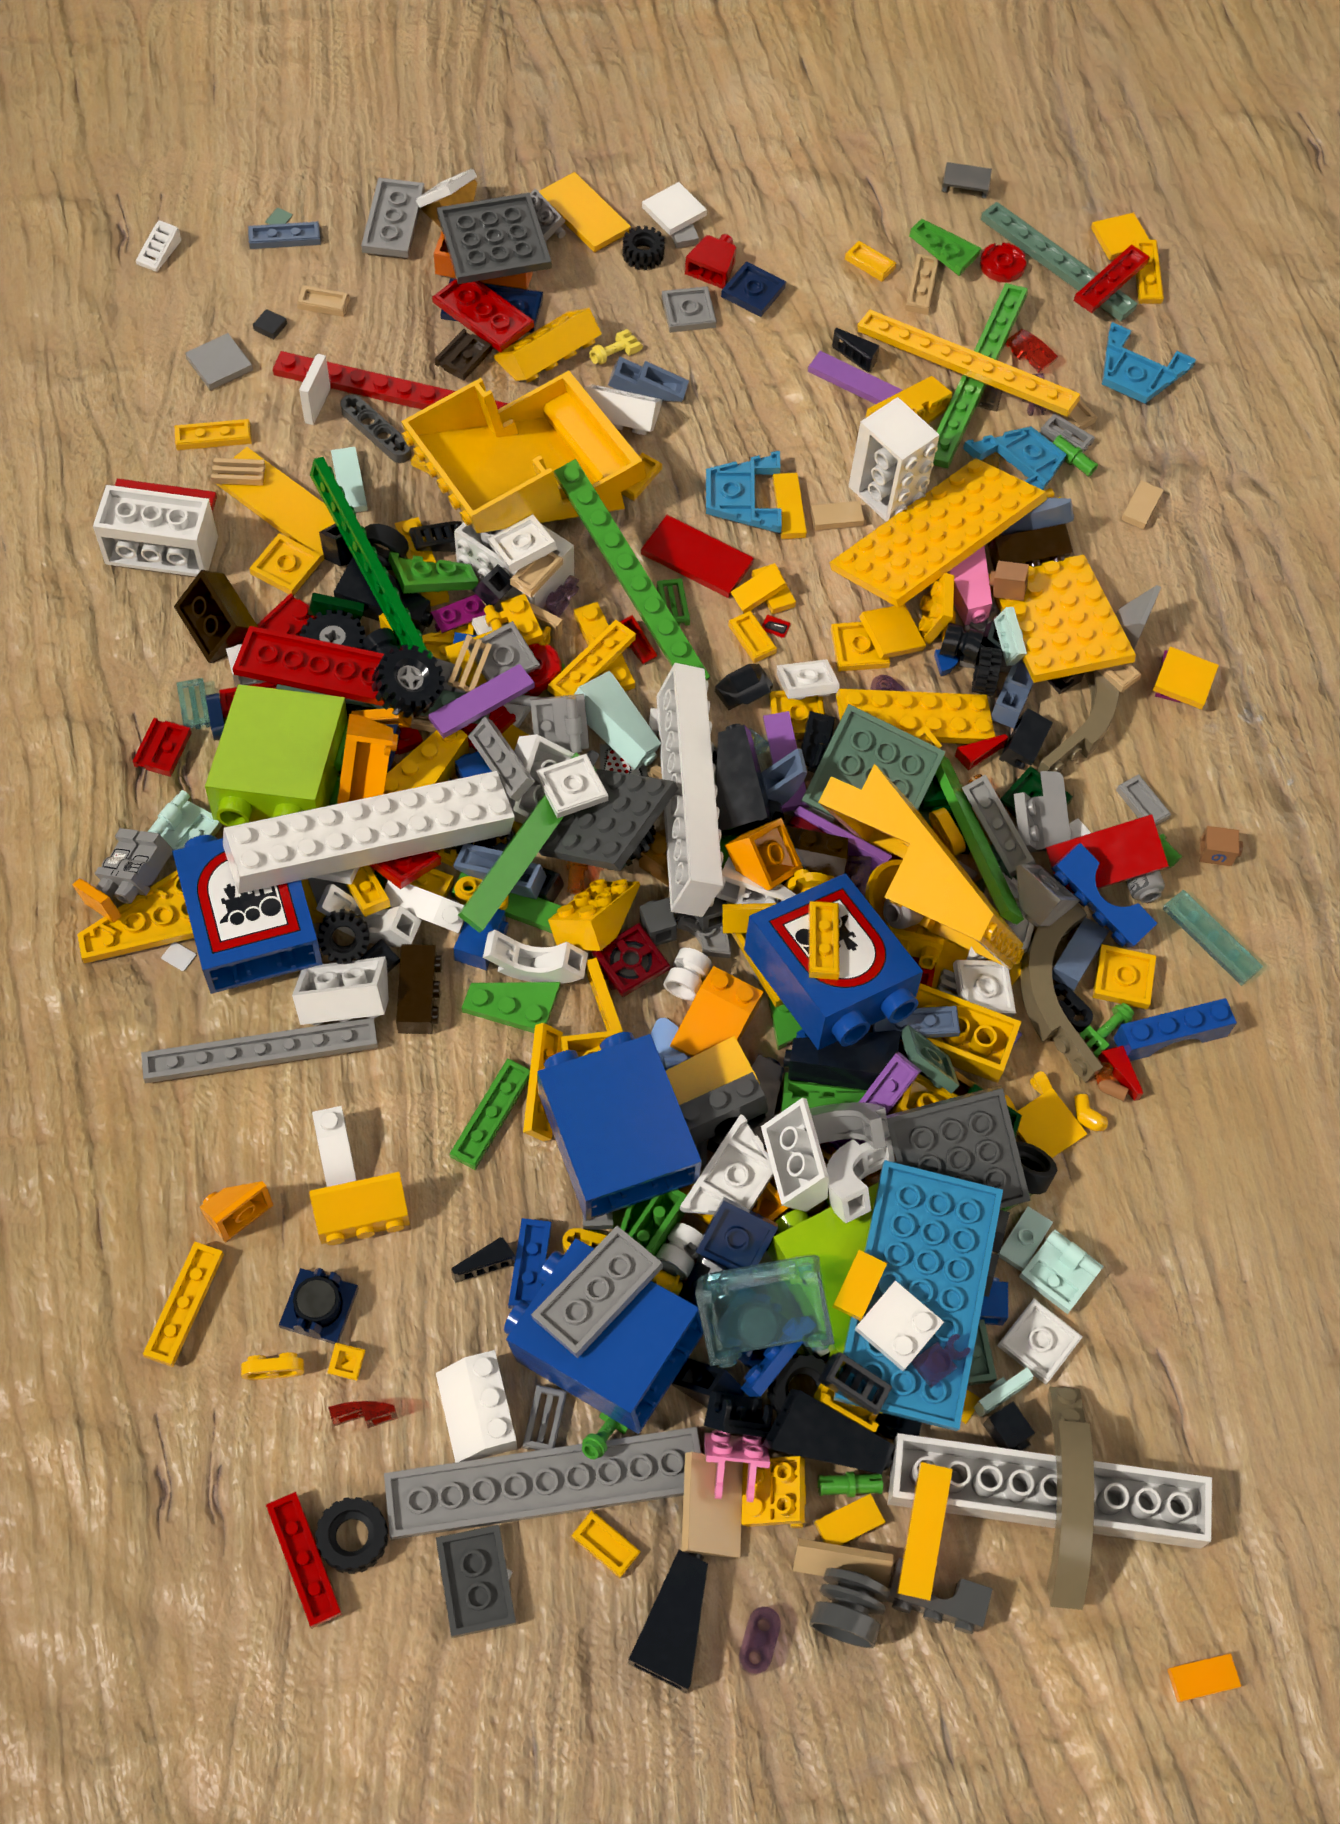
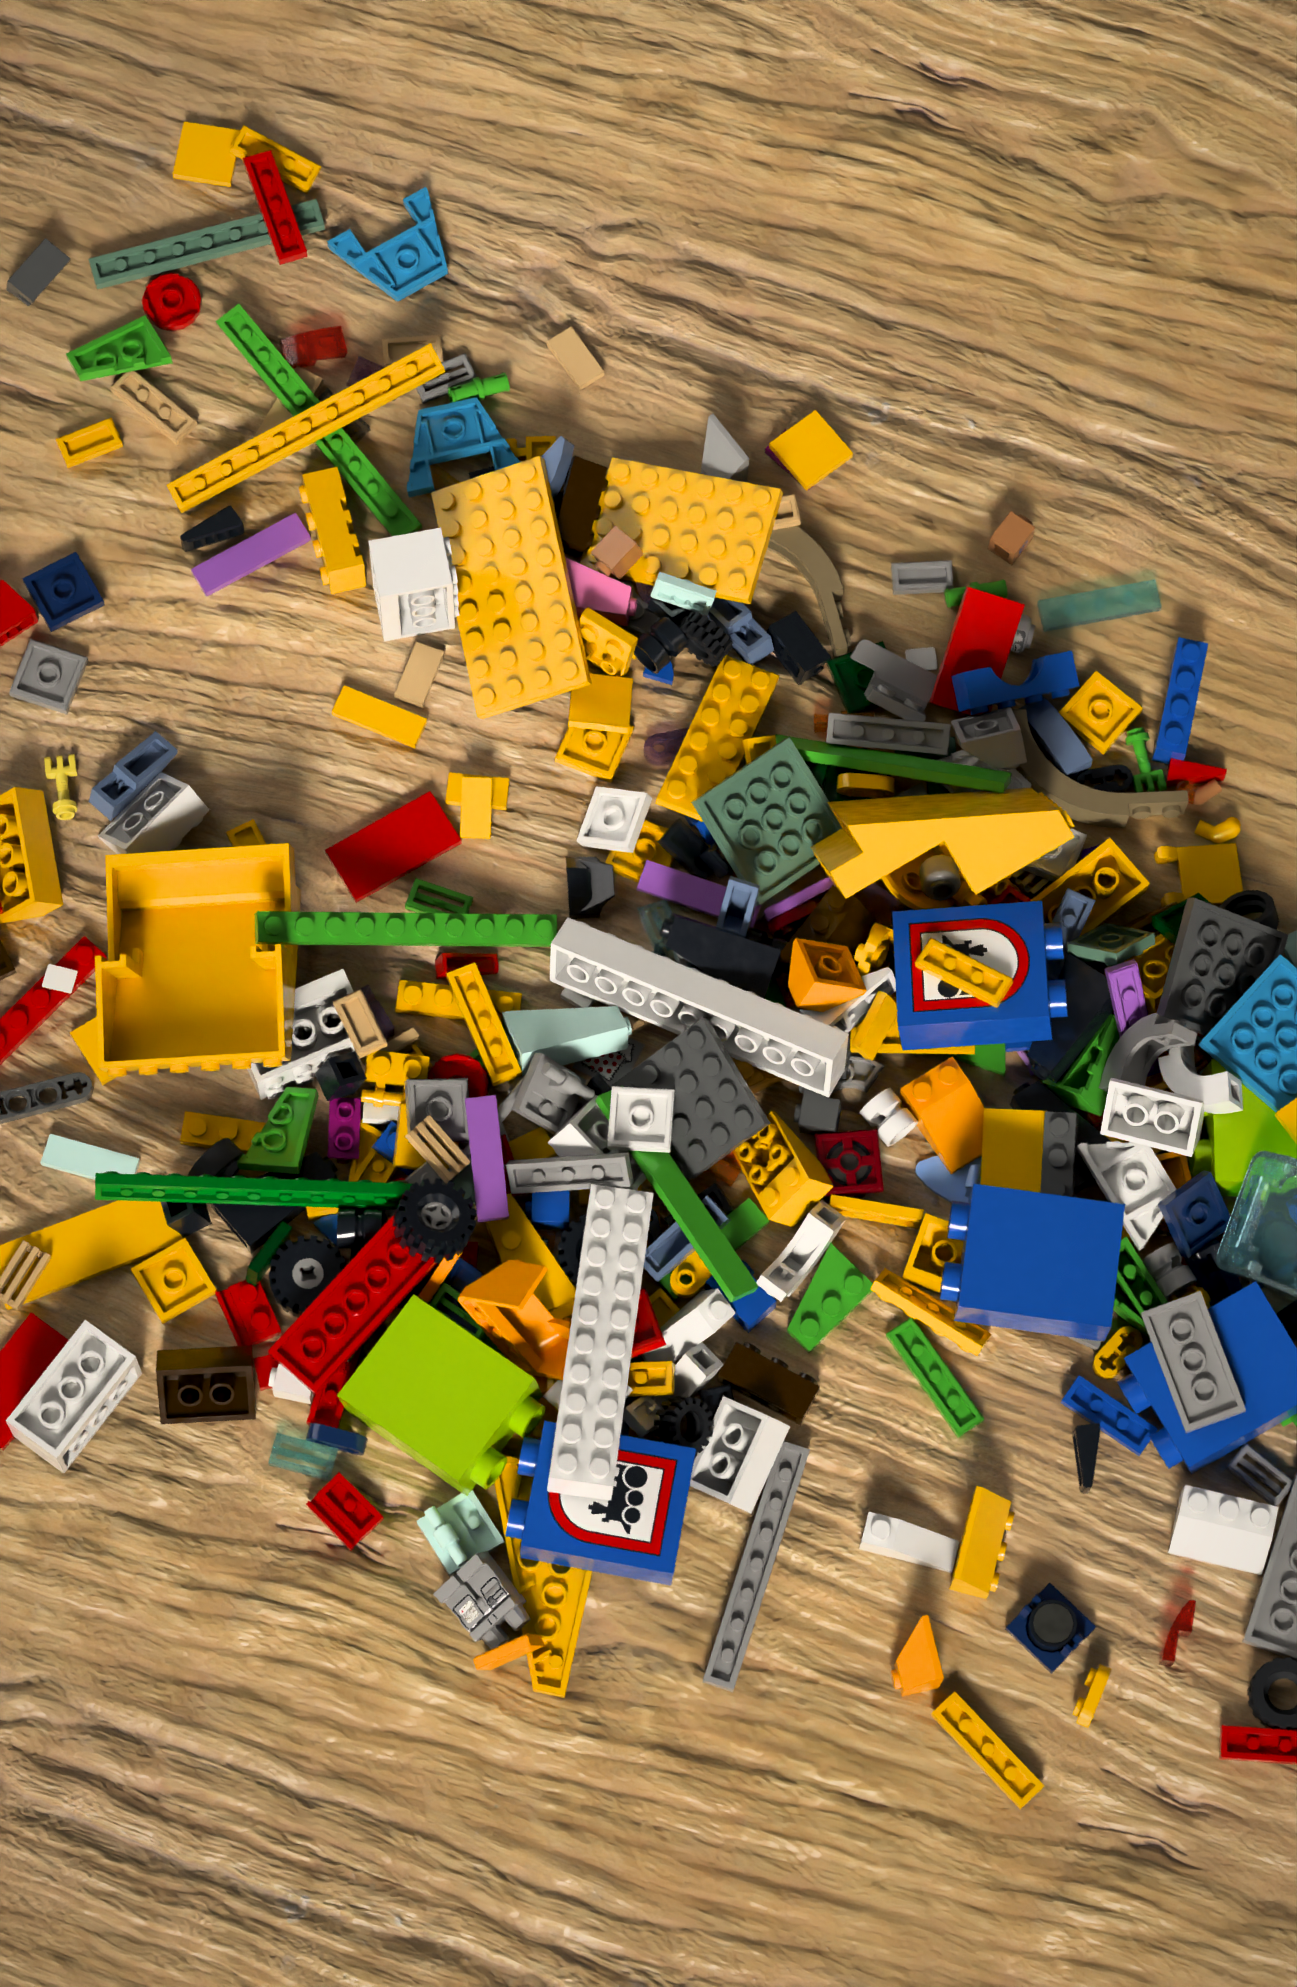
camera: 60 degrees left, 10 degrees up
(178, 956) = (602, 1601): white sticker -> none
(346, 1361) = (1118, 1626): yellow tile -> none
(438, 531) = (235, 1084): black slope -> none
(522, 543) = (324, 1020): white plate -> none
(732, 492) = (335, 766): dark azure wing -> none
(752, 636) = (525, 845): yellow tile -> none
(775, 626) = (522, 815): sticker -> none
(976, 752) = (784, 705): red piece -> none

